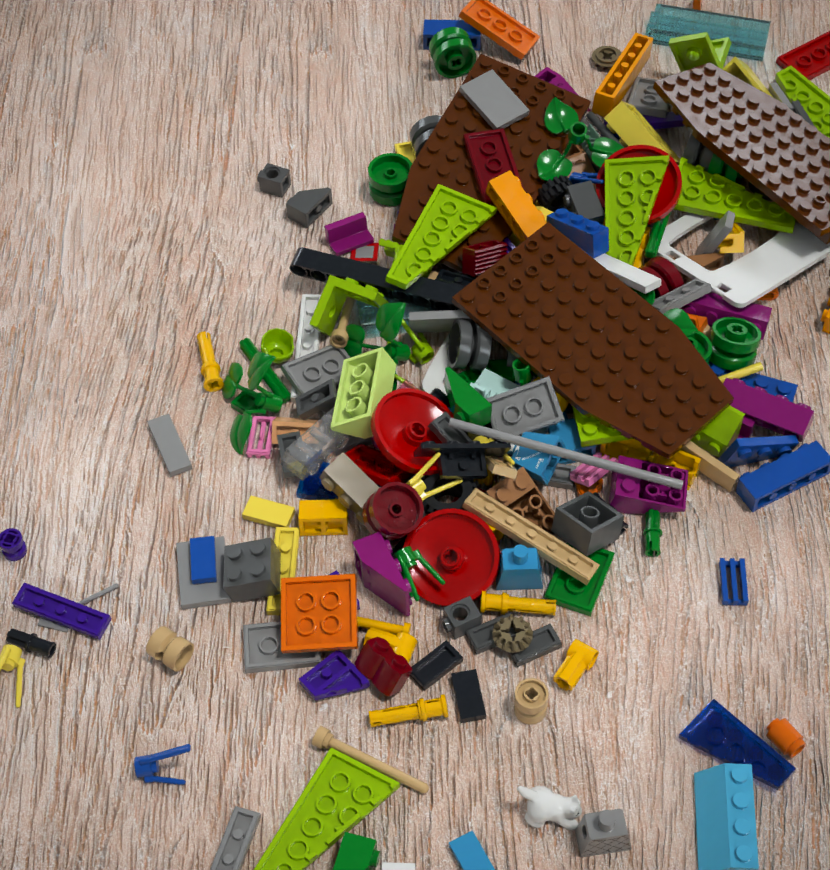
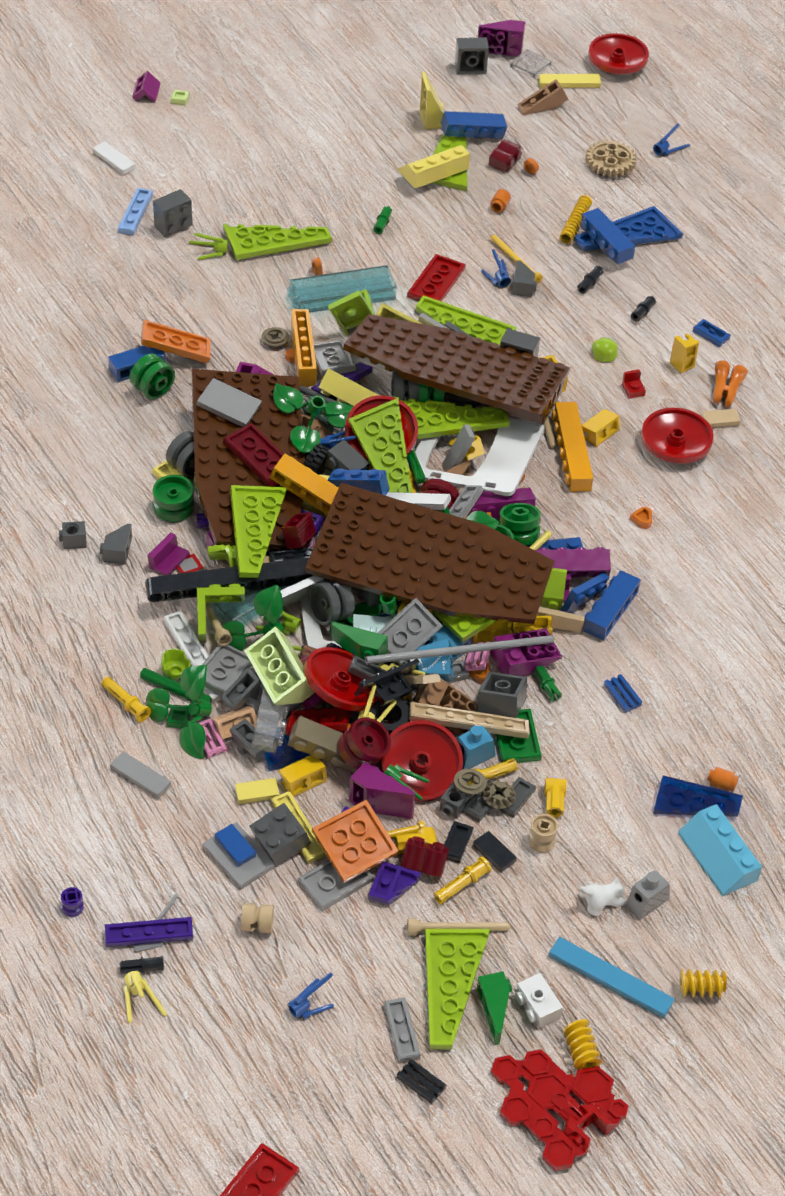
camera: 35 degrees left, 5 degrees down
(483, 596) = (466, 775): none -> dark tan gear

